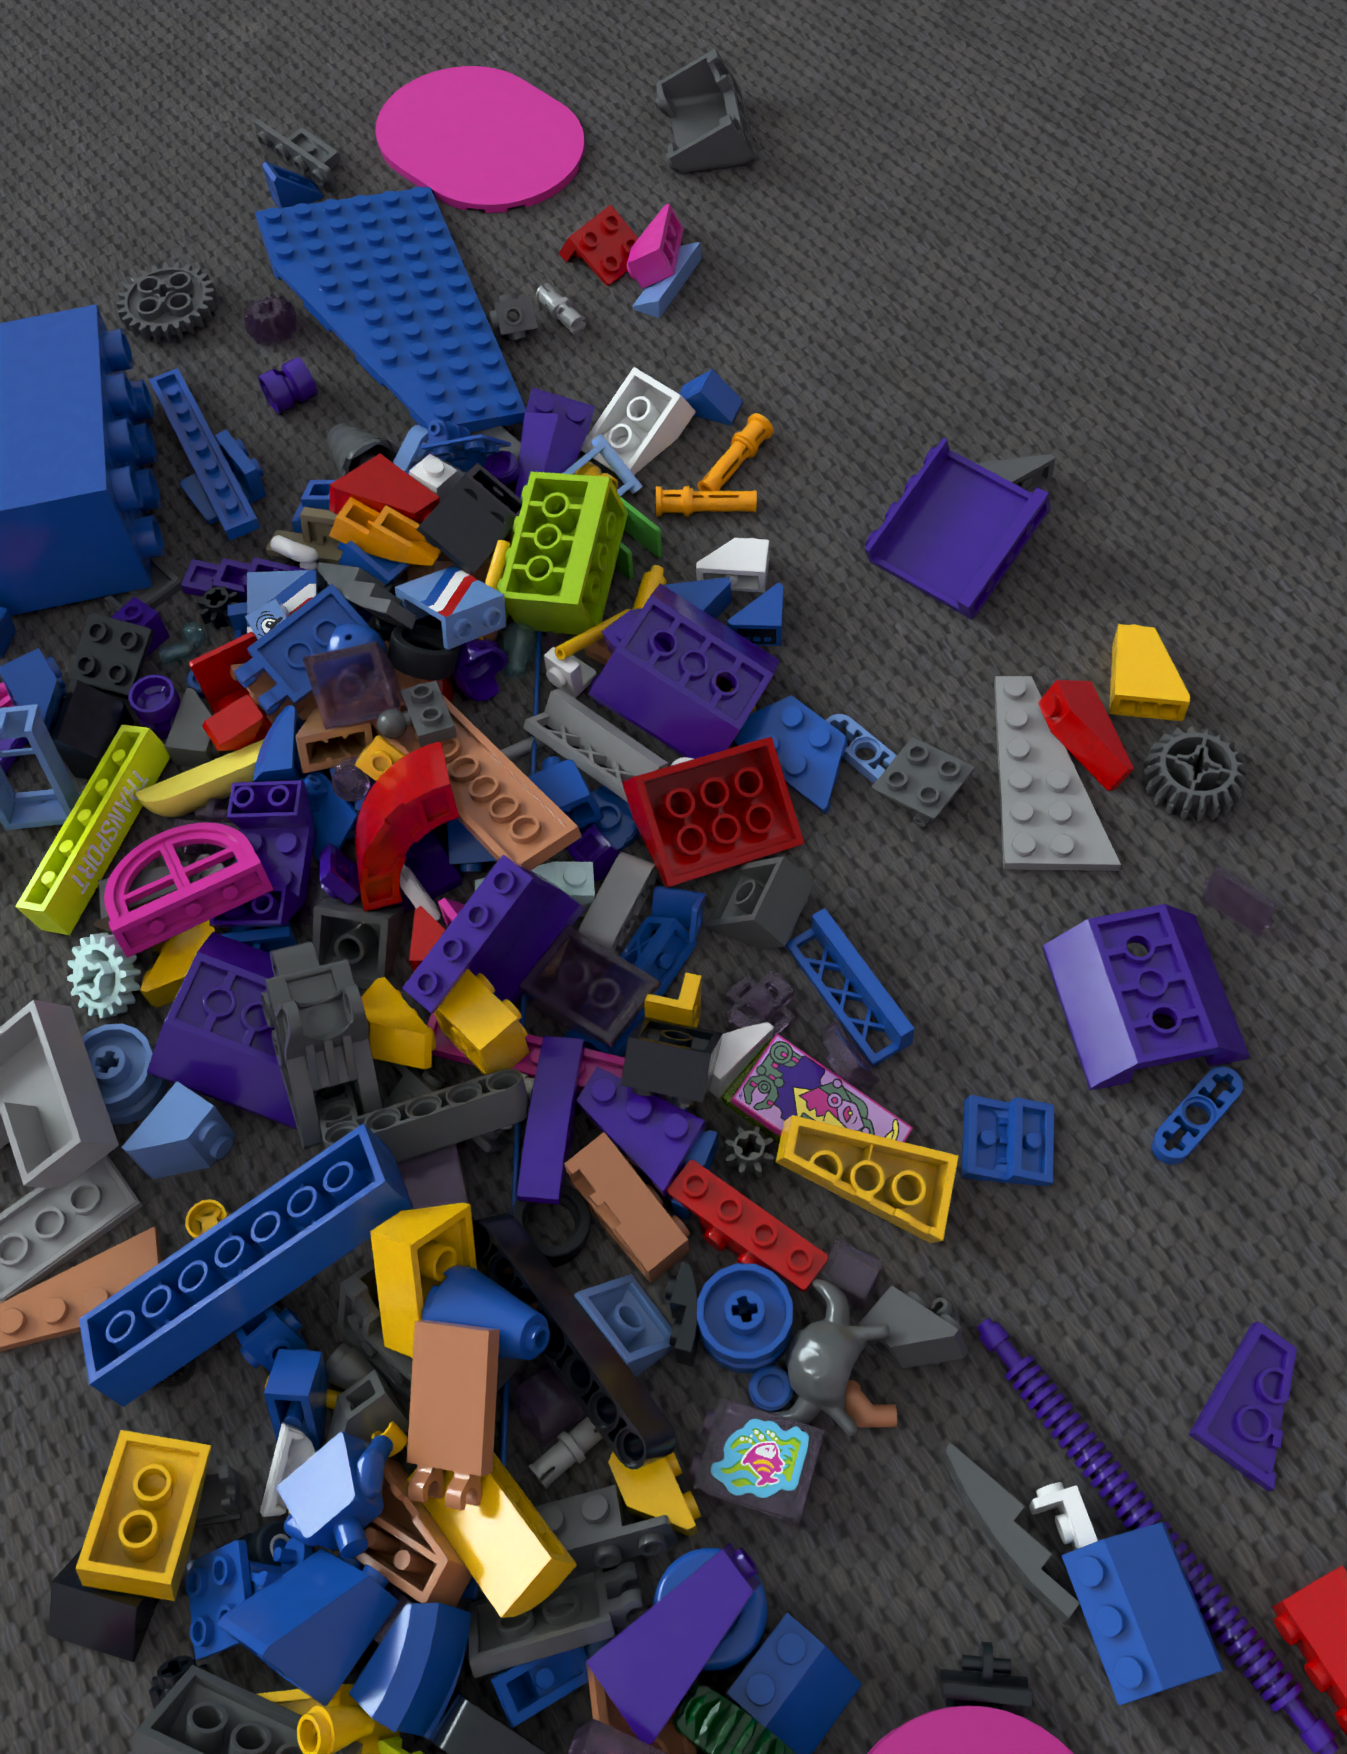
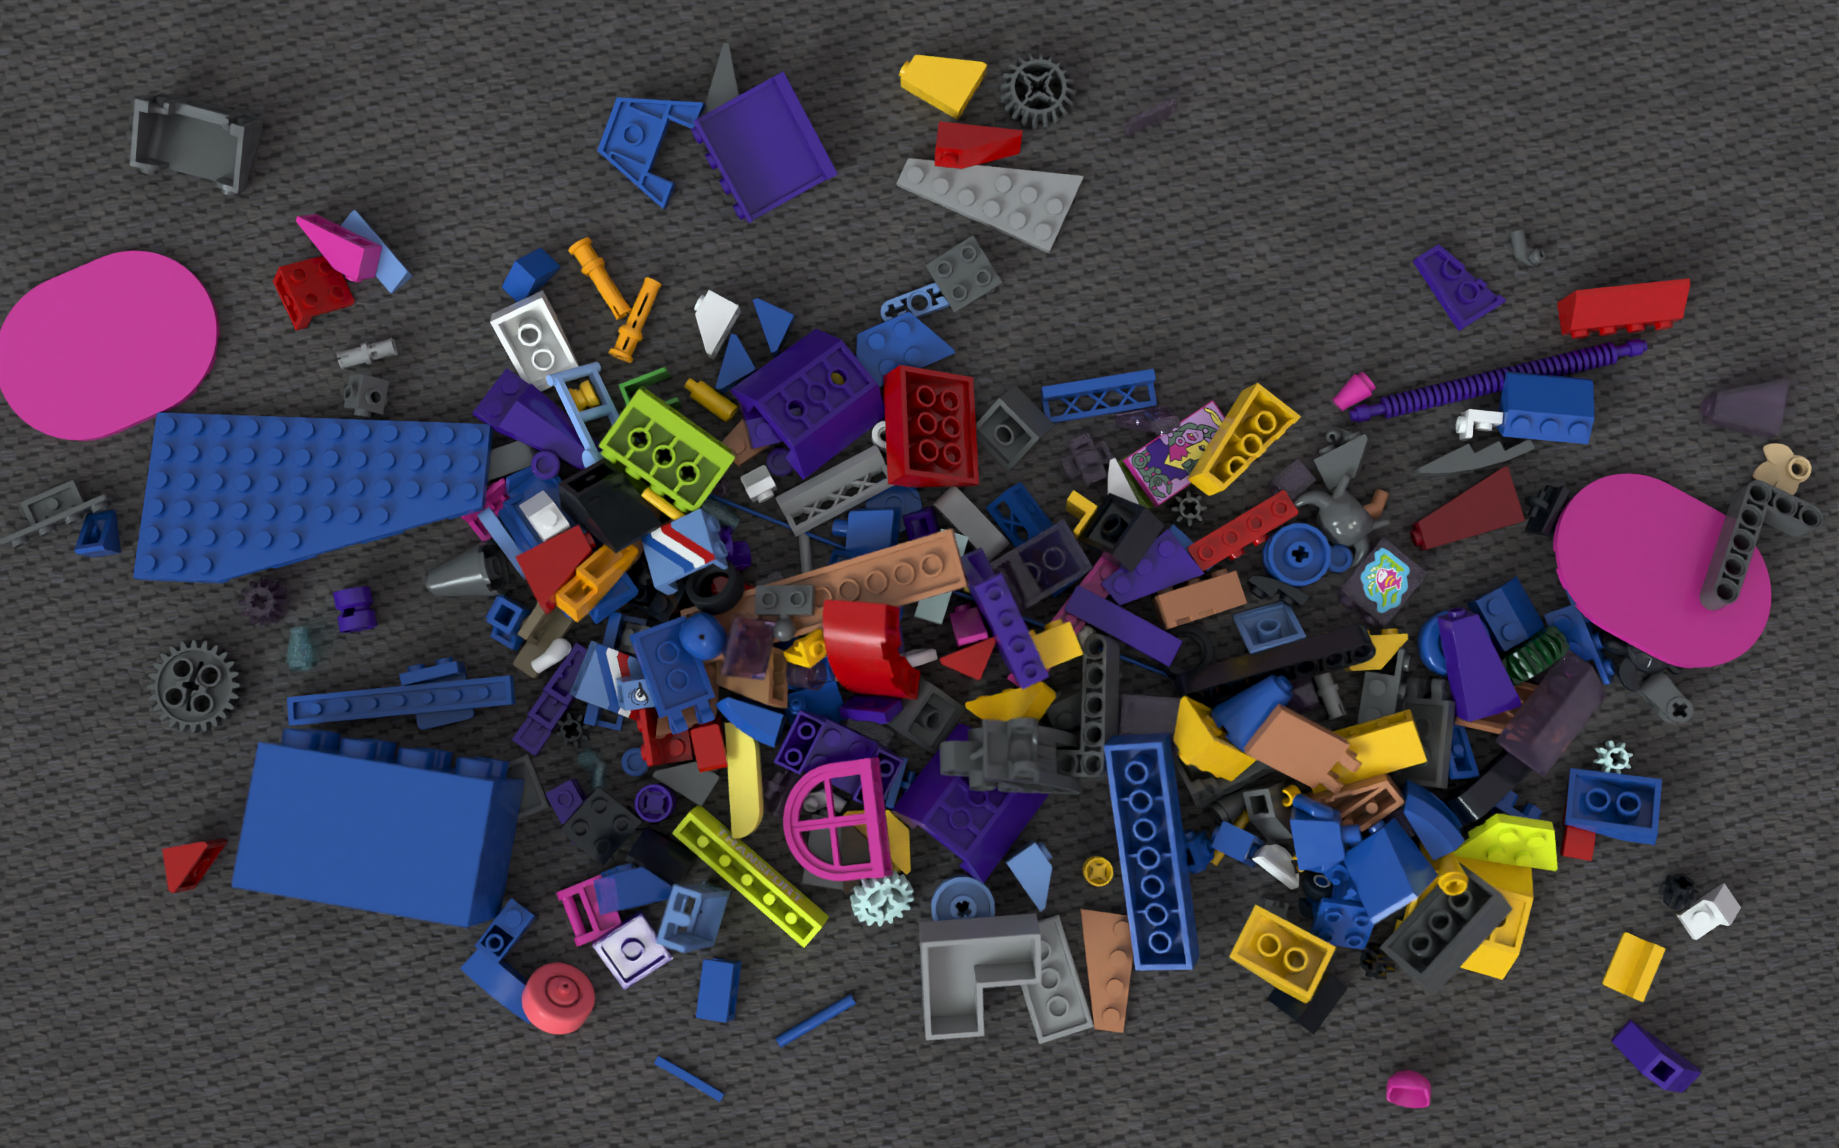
camera: 75 degrees left, 25 degrees up
(231, 363) = (299, 651): none -> clear light blue cone
(367, 593) = (641, 615): dark grey slope -> none
(456, 442) = (521, 494): blue hinge -> none
(585, 639) = (742, 454): yellow piece -> none
(682, 905) = (993, 481): blue bracket -> none
(901, 427) = (635, 138): none -> blue wing
(926, 1563) = (1477, 510): none -> dark red slope
(1008, 1141) = (1242, 345): blue slope -> none
(1020, 1313) = (1355, 390): none -> dark pink cone
(1114, 994) = (1185, 231): dark purple slope -> none
(1194, 1098) = (1289, 237): blue beam -> none

